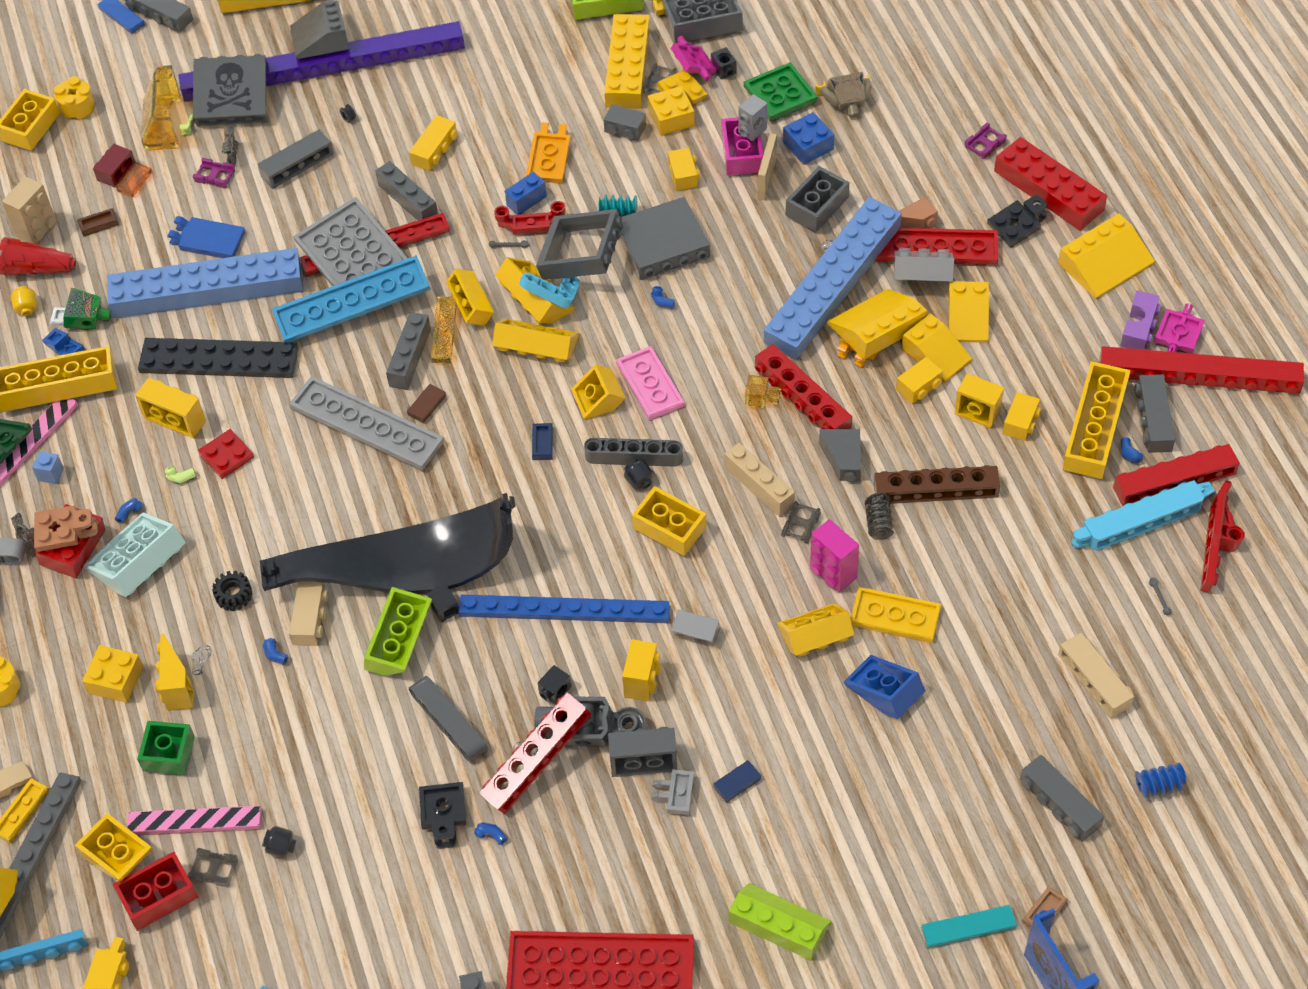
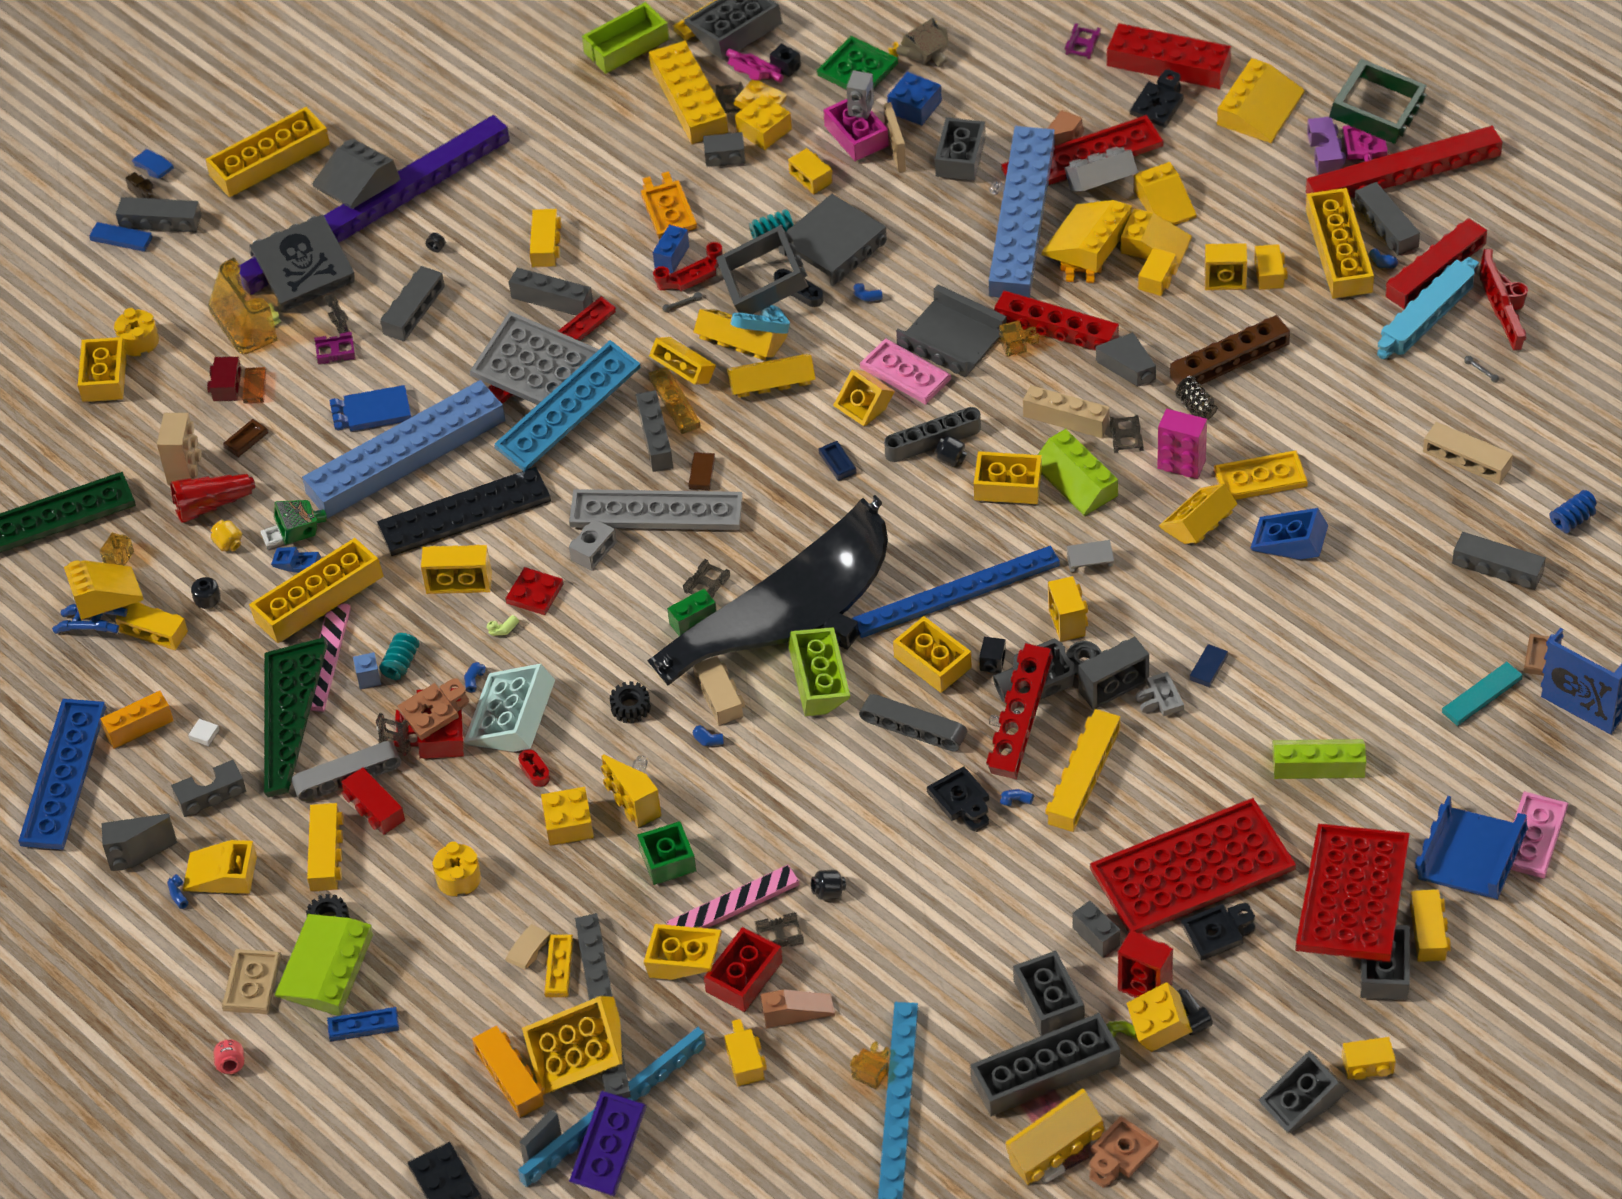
camera: 25 degrees left, 5 degrees down
(80, 464) = (399, 656): none -> teal piece
(124, 615) = (538, 765): none -> red beam
(178, 948) = (793, 1006): none -> nougat slope
(295, 432) = (592, 544): none -> light grey brick
(331, 529) = (690, 611): none -> green brick
(362, 501) = (700, 578): none -> clear smoke piece
(501, 661) = (932, 654): none -> yellow brick
(562, 834) = (1083, 770): none -> yellow brick
(608, 277) = (803, 295): none -> black beam
(710, 364) = (953, 331): none -> dark grey panel
(732, 542) = (1077, 473): none -> lime slope
(1191, 318) = (1369, 122): none -> dark green window

